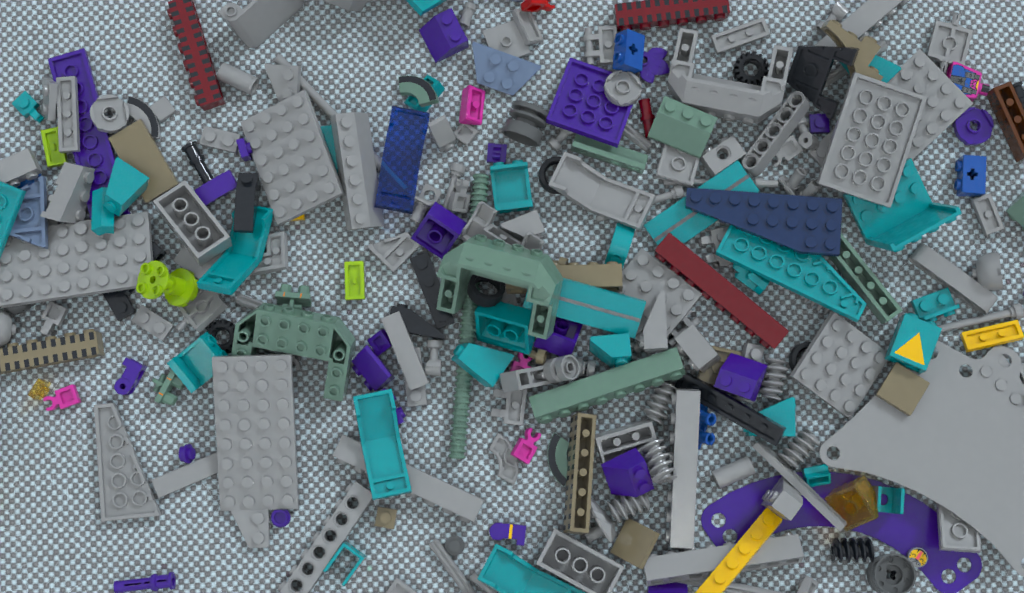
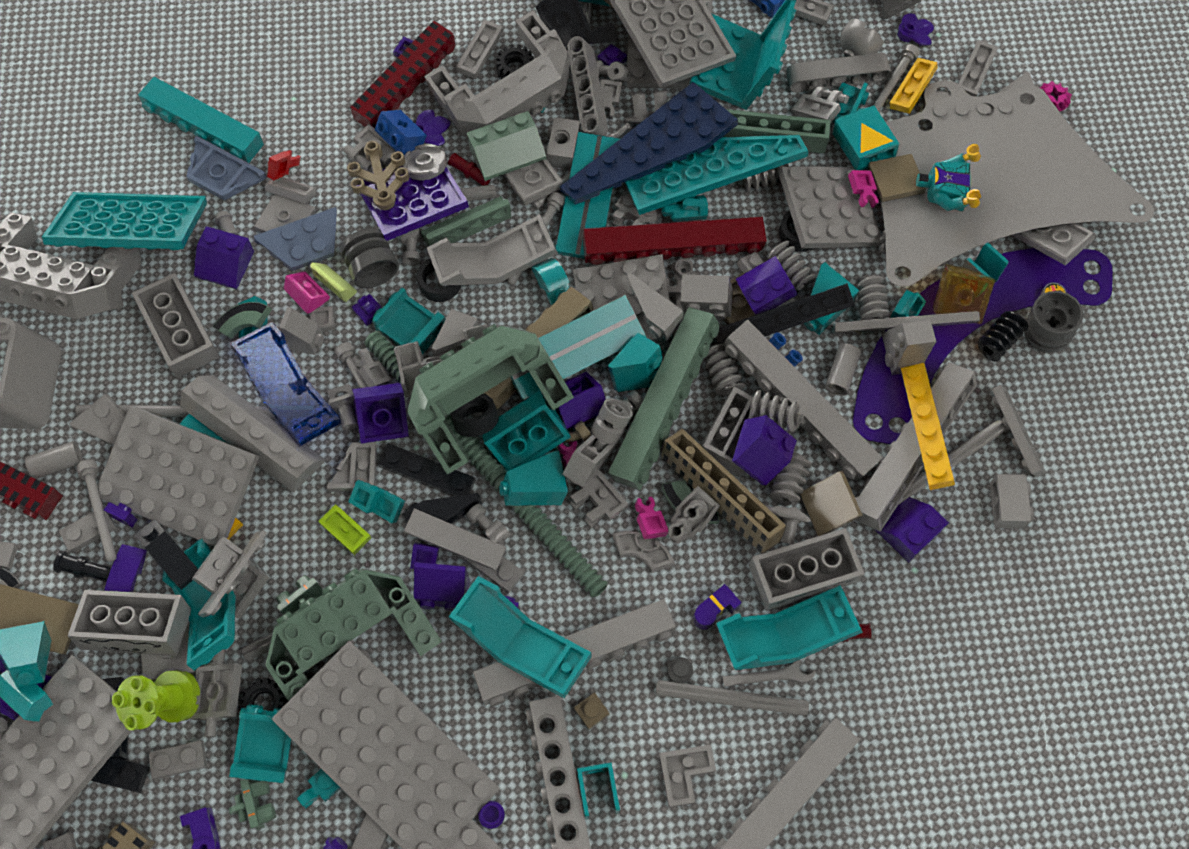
camera: 50 degrees left, 15 degrees down
(208, 413) = (322, 786): none -> teal plate
(249, 104) = (88, 472): none -> light grey piece
(267, 242) = (222, 567): none -> light grey bracket
(376, 57) = (175, 325): none -> light grey brick
(386, 278) = (376, 500): none -> teal slope
(495, 114) = (333, 281): none -> yellowish green slope
(549, 469) = (692, 515): none -> light grey connector
(584, 74) = (385, 196): none -> dark tan plant
(706, 308) = (682, 264): none -> light grey plate
(875, 373) = (864, 185): none -> dark pink plate
(908, 291) = (817, 107): none -> light grey plate
(927, 428) = (950, 181): none -> torso

